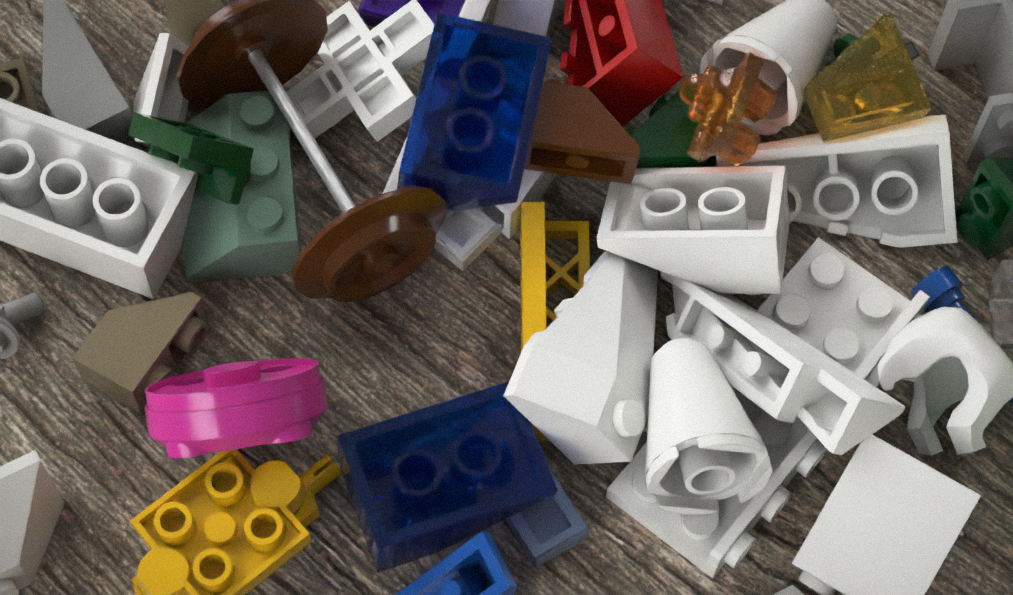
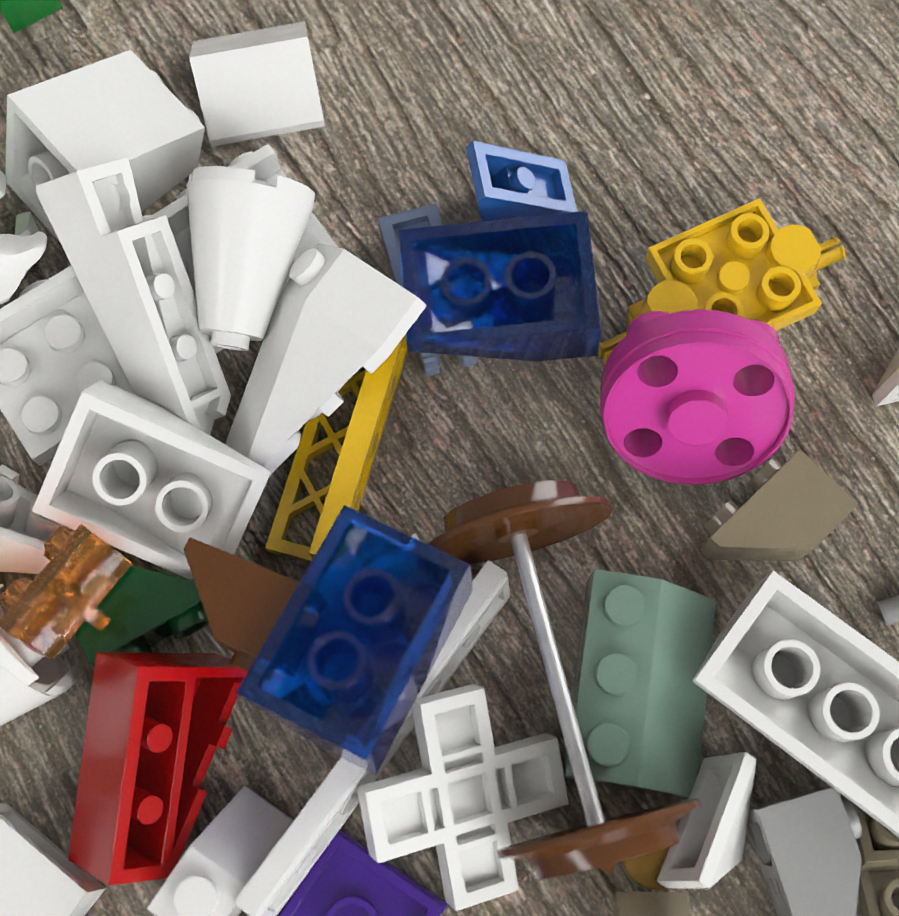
camera: 160 degrees left, 10 degrees up
(219, 162) = (697, 697): dark green bracket -> none

